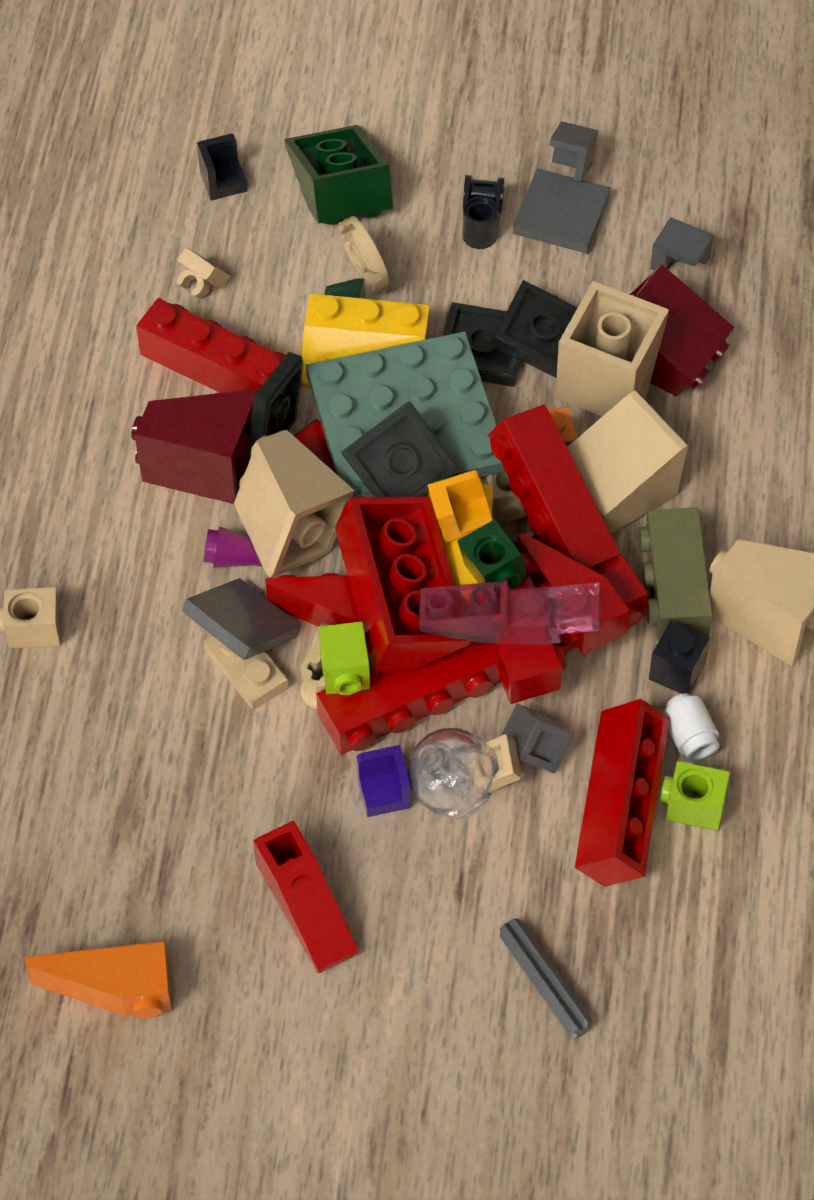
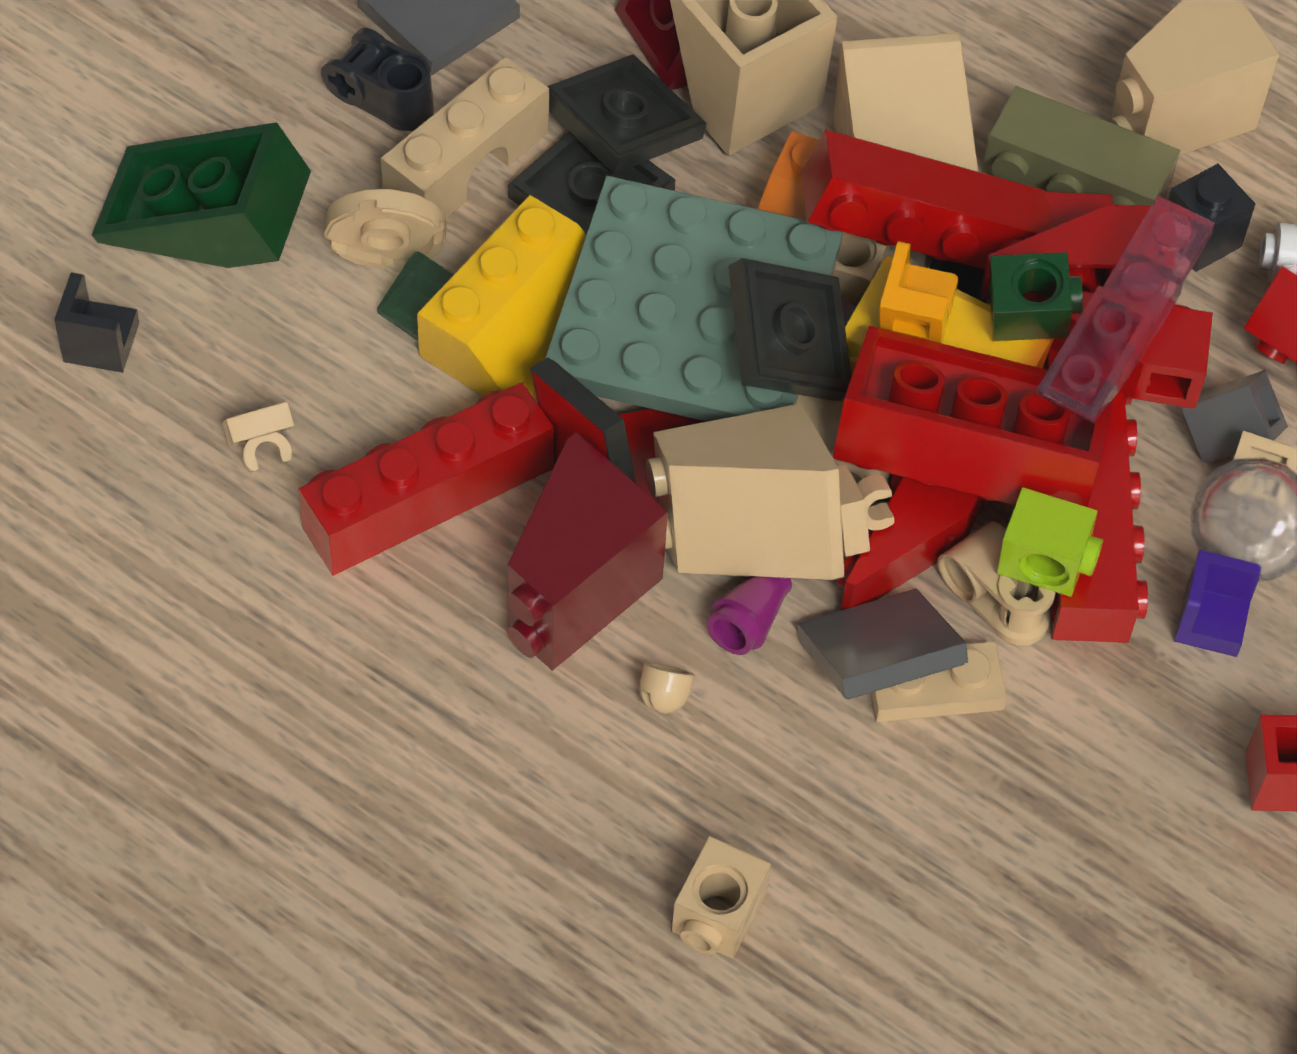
camera: 65 degrees left, 0 degrees up
(156, 531) = (665, 687): none -> tan hinge
(307, 554) = (857, 513): none -> tan tile
(488, 266) = (494, 115): none -> tan arch

